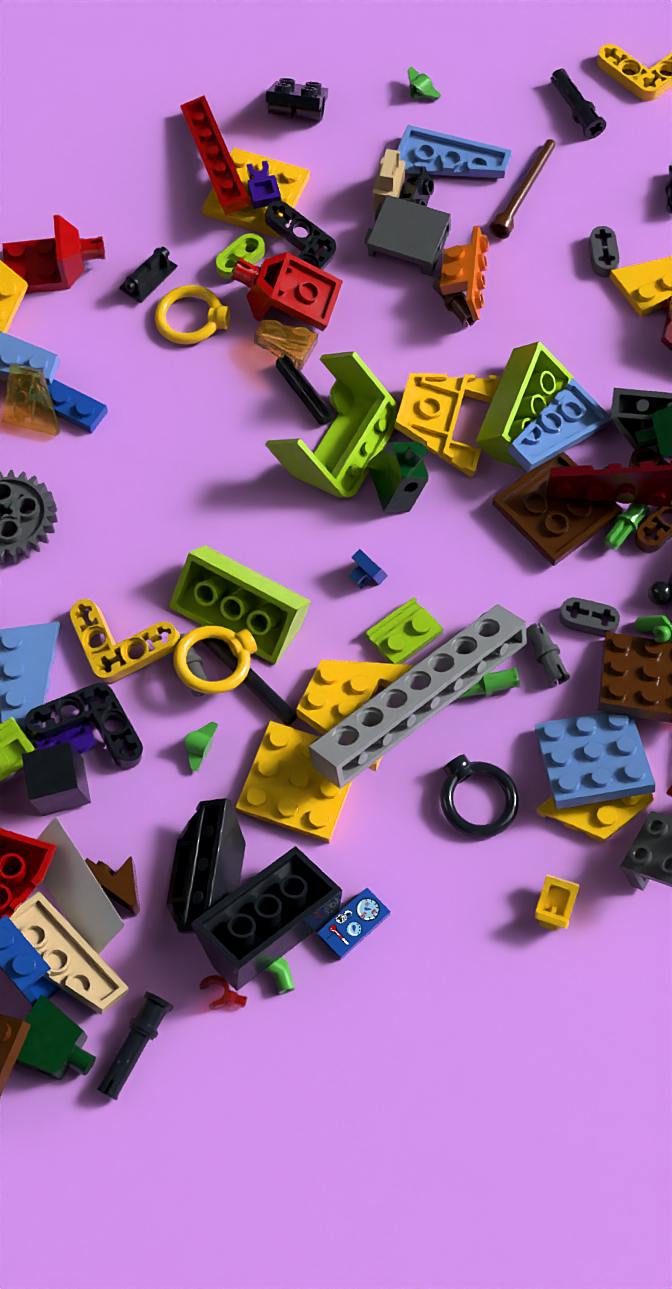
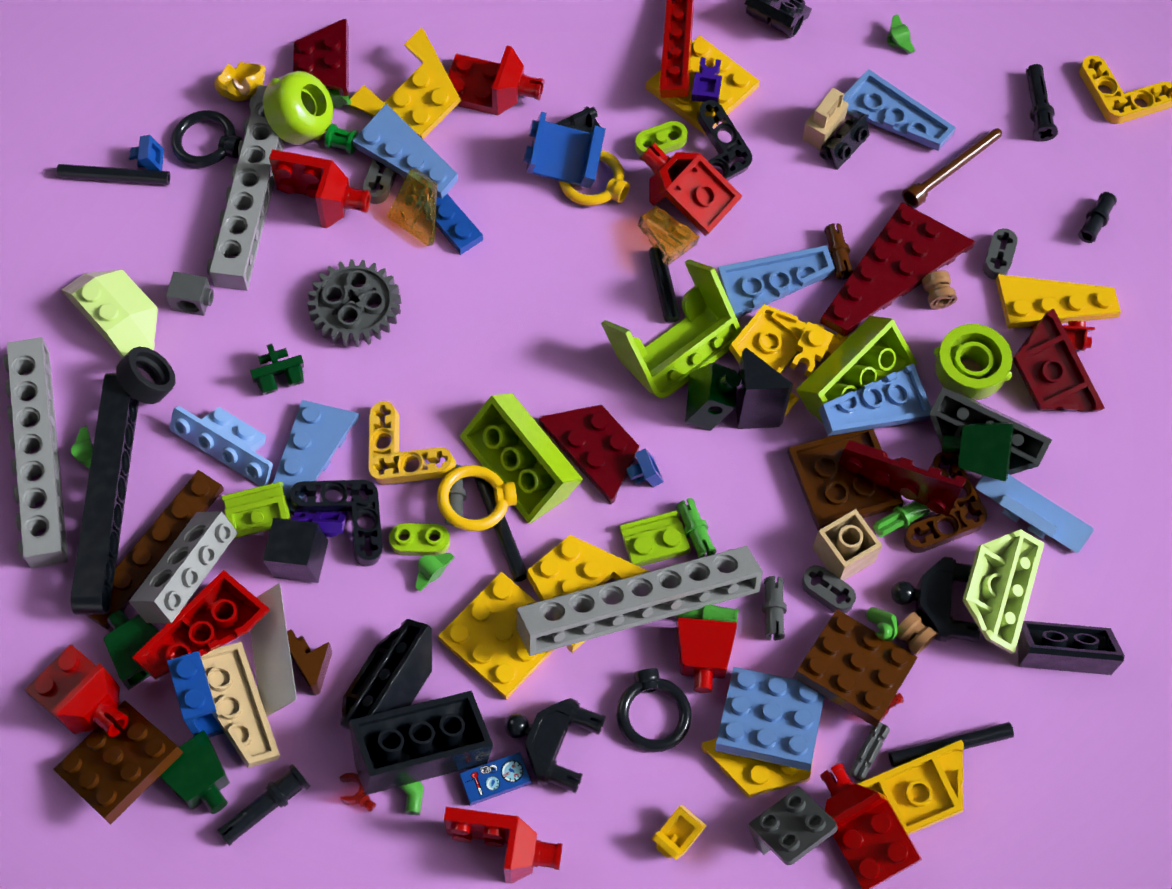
camera: 20 degrees right, 0 degrees up
(154, 298) = (564, 152): none -> blue panel
(175, 723) = (419, 543): none -> lime plate
(306, 566) = (595, 445): none -> dark red wing
(387, 863) = (547, 736): none -> black connector
(408, 344) = (773, 277): none -> medium blue wing
(409, 232) = (823, 173): dark grey panel -> none
(414, 978) = (496, 829): none -> red plate
(439, 607) = (696, 528): none -> bright green pin
(450, 454) = (761, 394): none -> black slope
(464, 271) = (857, 228): orange bracket -> none
(473, 395) = (812, 345): none -> yellow plate
(500, 718) = (704, 650): none -> red torso
(516, 289) = (893, 266): none -> dark red wing
(564, 302) = (939, 289): none -> medium nougat wheel
(590, 568) = (847, 545): none -> tan head
(631, 340) = (978, 344): none -> lime piece

